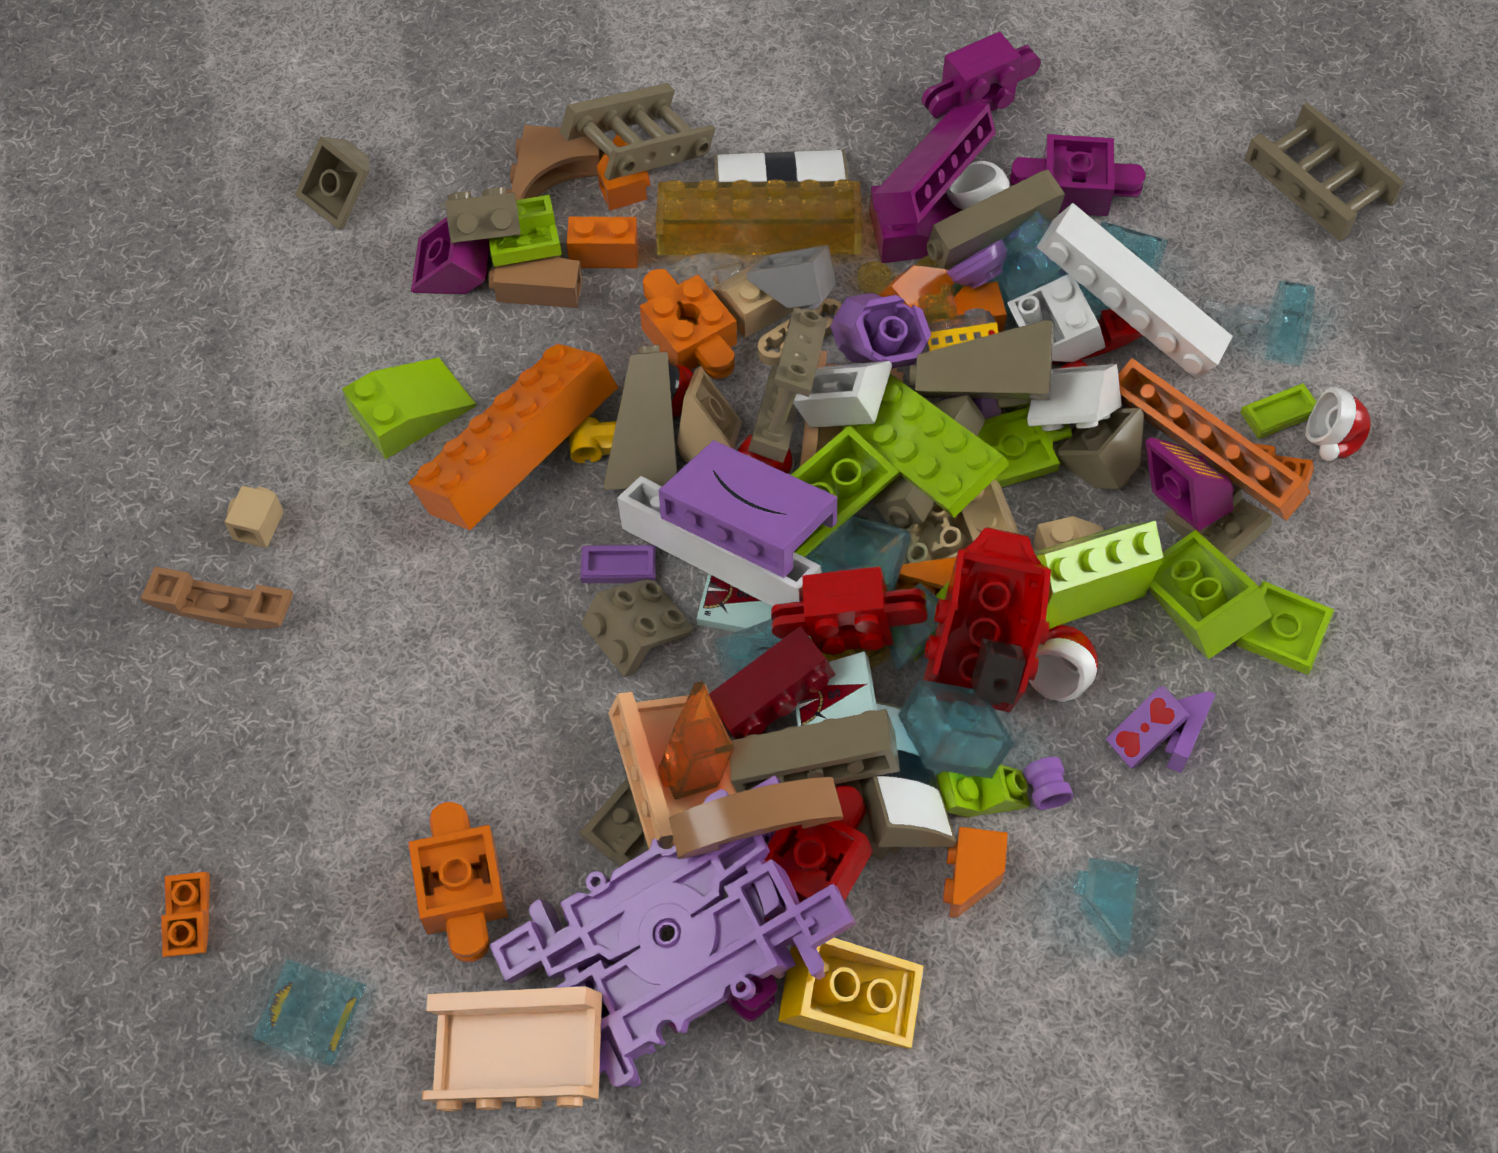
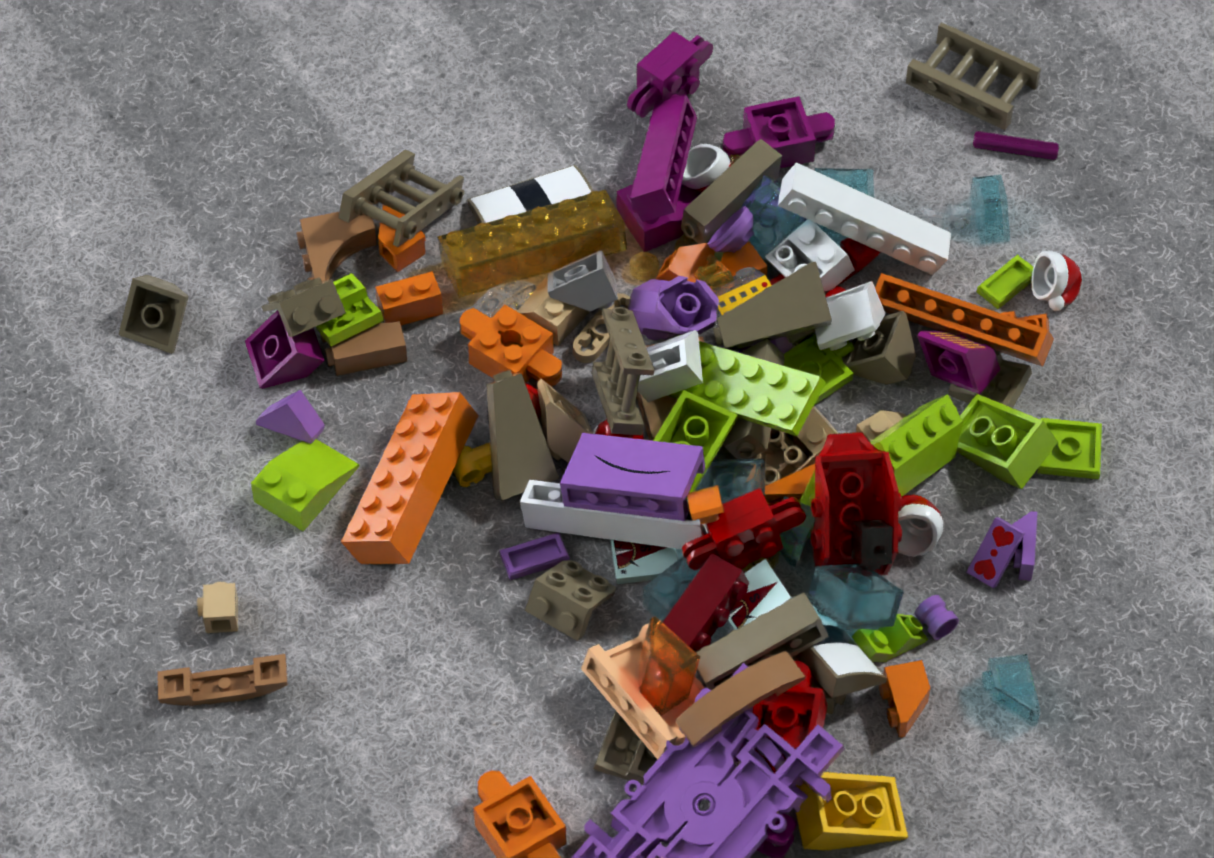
camera: 20 degrees left, 5 degrees down
(426, 334) = (293, 418): none -> medium lavender slope
(809, 566) = (705, 504): none -> orange slope
(1346, 260) = (1015, 145): none -> magenta axle

